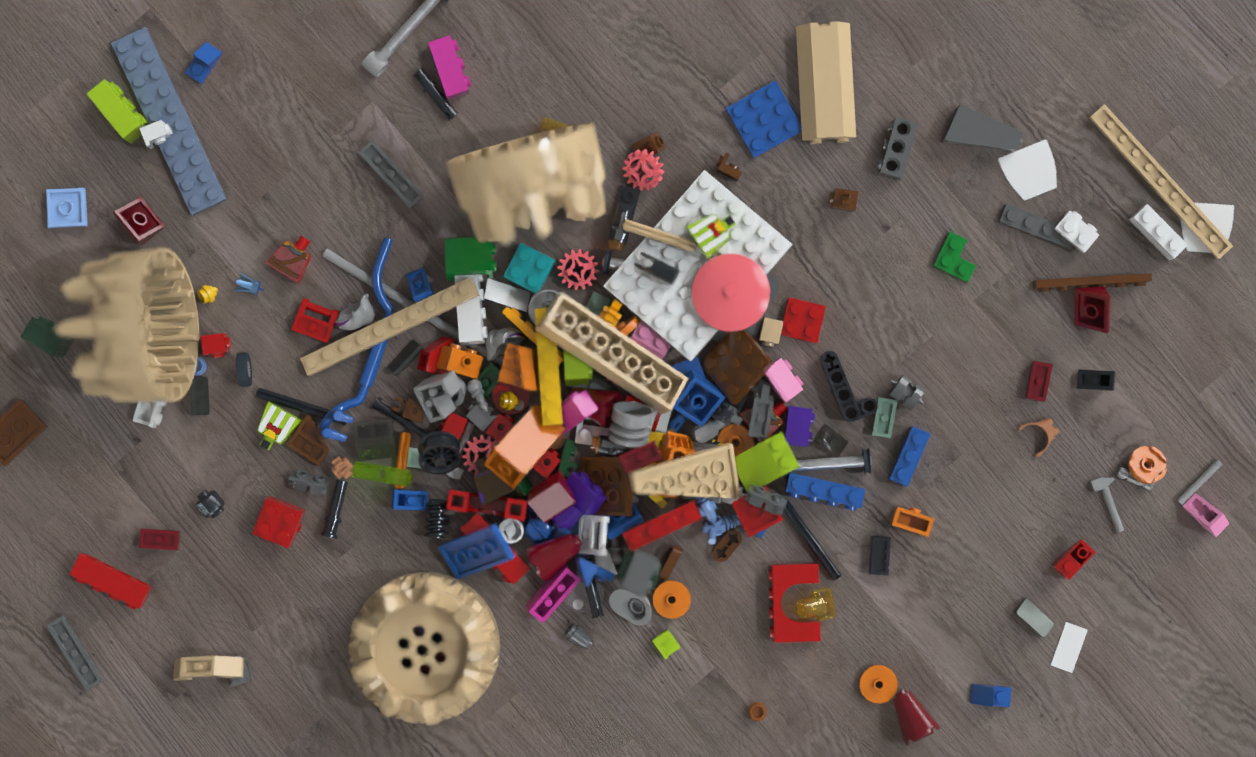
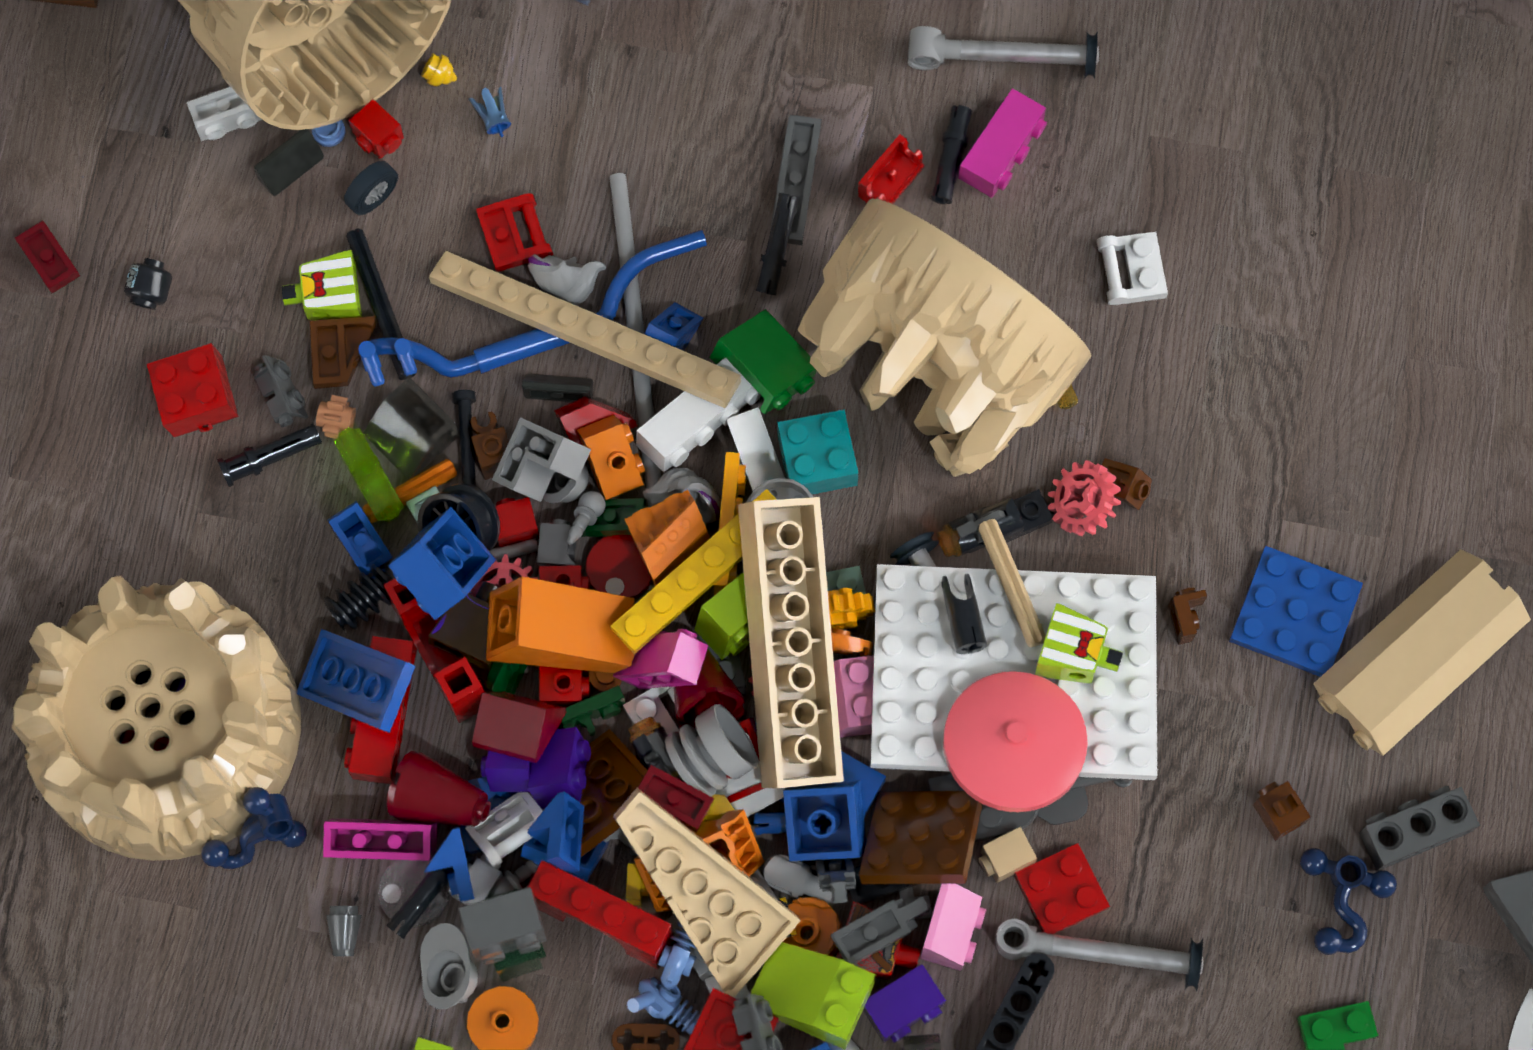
camera: 50 degrees right, 15 degrees down
(291, 259) = (573, 139): torso -> none
(422, 214) = (777, 244): none -> black pin
(424, 130) = (891, 172): none -> red hinge
(458, 476) = (442, 563): none -> blue brick
(508, 401) = (609, 566): yellow plate -> none
(508, 634) = (269, 822): none -> dark blue piece
(512, 530) = (426, 710): white wheel -> none
(536, 529) = (455, 749): blue piece -> none
(556, 52) = (1142, 265): none -> white plate
(569, 272) = (882, 528): coral gear -> none
(614, 513) = (561, 831): none -> blue slope
(670, 562) = (556, 977): reddish brown beam -> none
(845, 323) = (1101, 951): none -> piece
(908, 184) = (1381, 884): none -> dark blue piece

